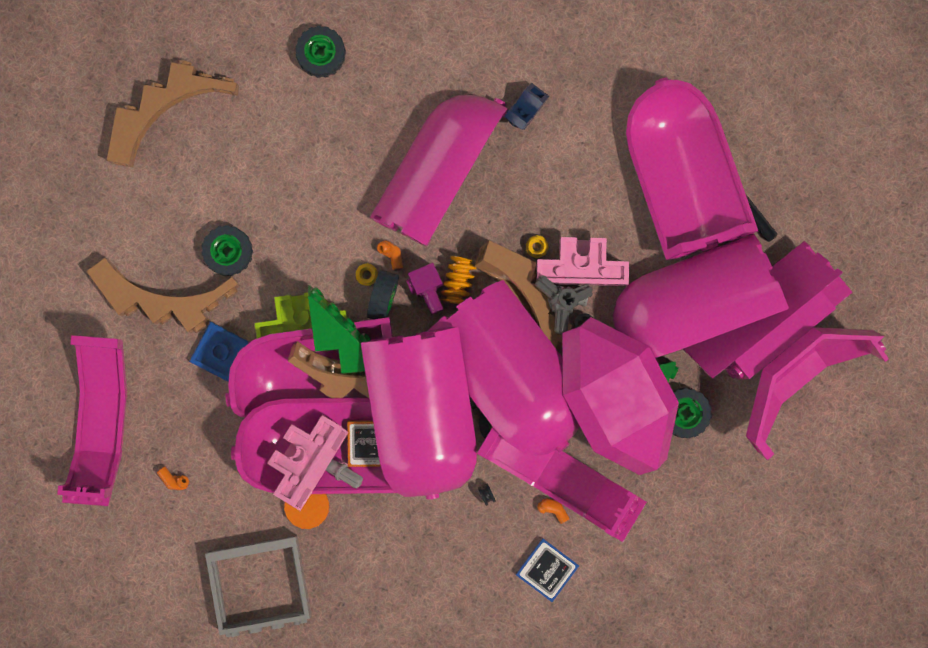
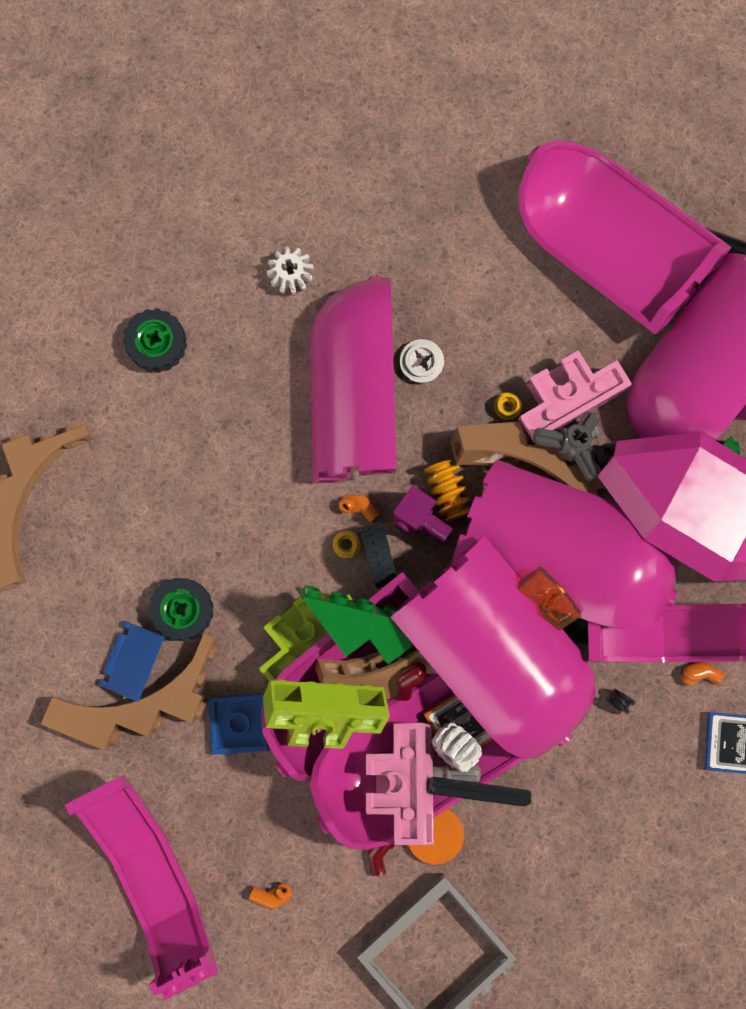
camera: 25 degrees left, 5 degrees down
(172, 265) = (131, 661): none -> blue piece
(258, 497) = (376, 858): none -> dark red arm
(285, 378) = (330, 707): none -> lime piece
(350, 391) = (409, 679): none -> dark red arm
(352, 495) = (478, 791): none -> black axle
(354, 456) = (456, 747): none -> white gear
(435, 60) = (300, 267): none -> white gear
(477, 396) = (553, 600): none -> clear orange slope
(489, 171) = (425, 349): none -> white gear
(526, 107) = (407, 267): dark blue brick -> none

